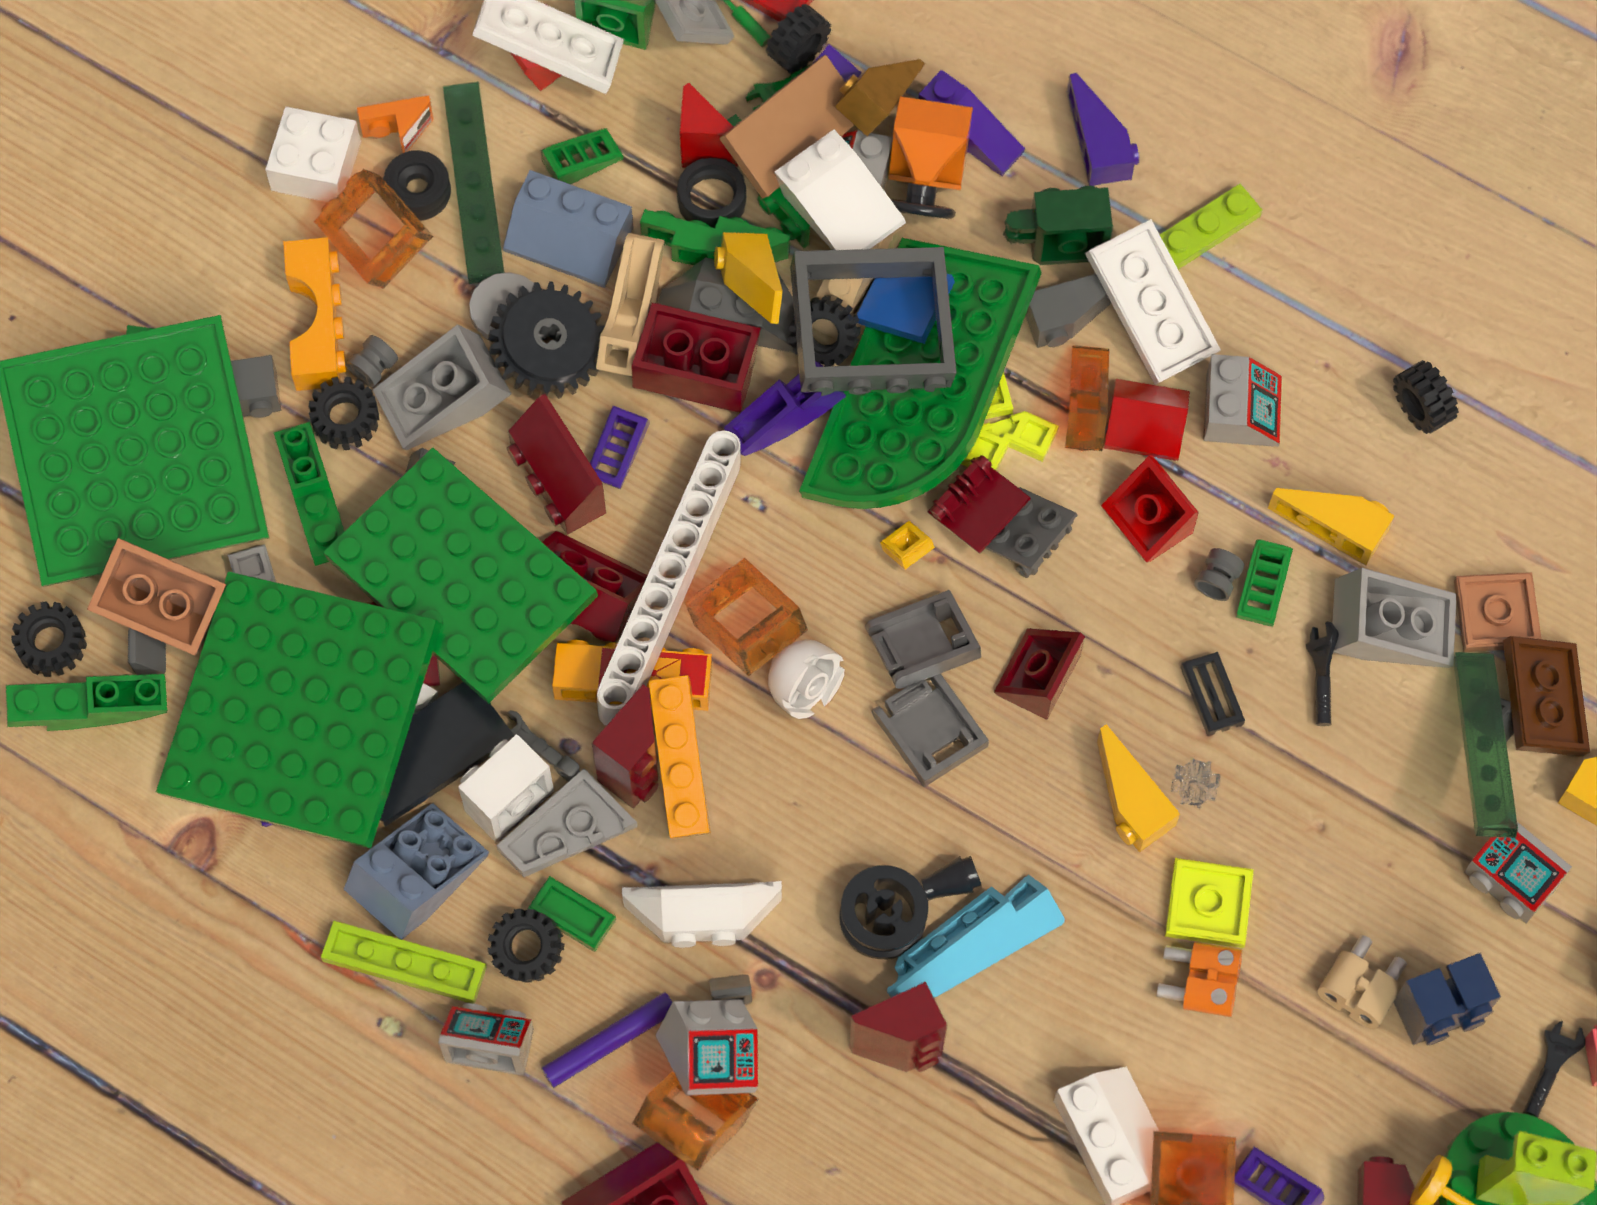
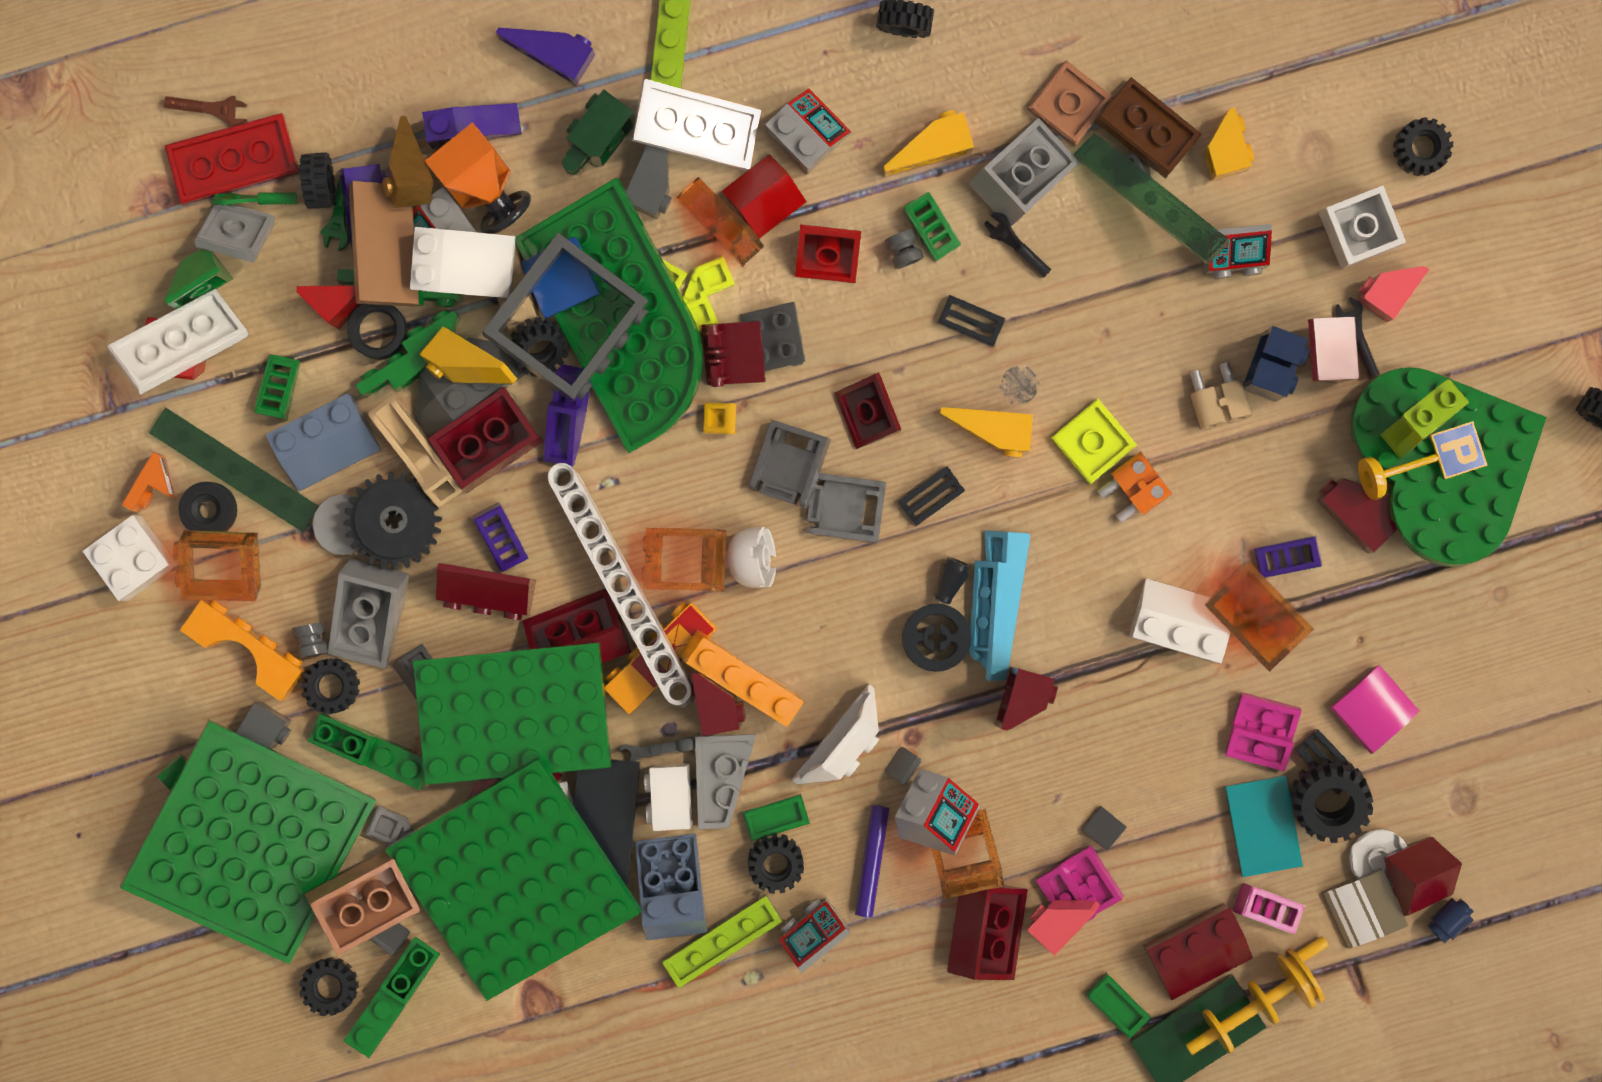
camera: 50 degrees left, 20 degrees up
(1019, 783) = (952, 481): none -> black tile
(1513, 1039) = (1333, 349): none -> slope

